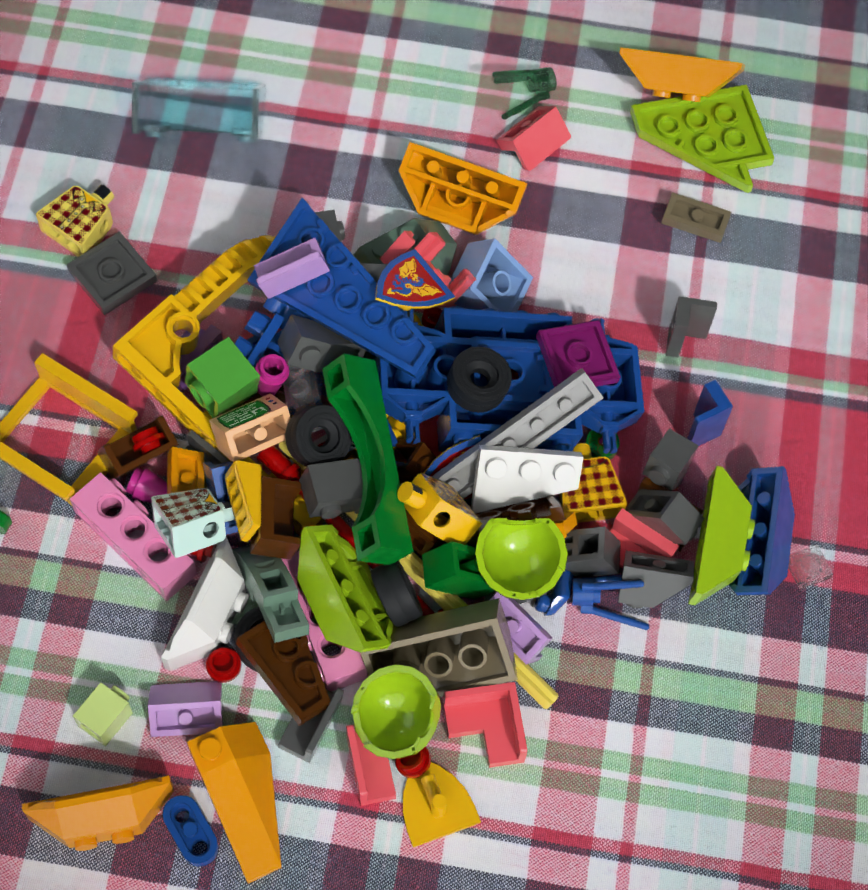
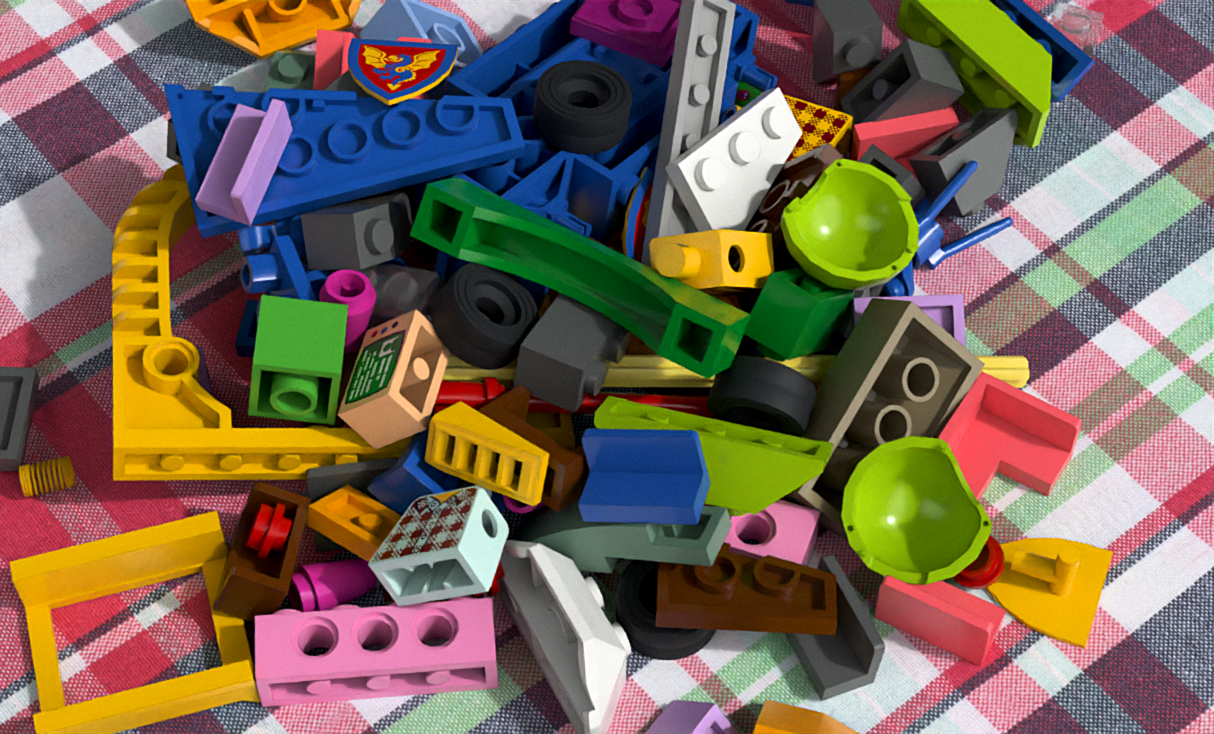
camera: 45 degrees left, 10 degrees down
(119, 327) = (26, 480): none -> yellow piece
(223, 664) = (655, 678): red plate -> none
(284, 578) = (644, 476): none -> blue panel

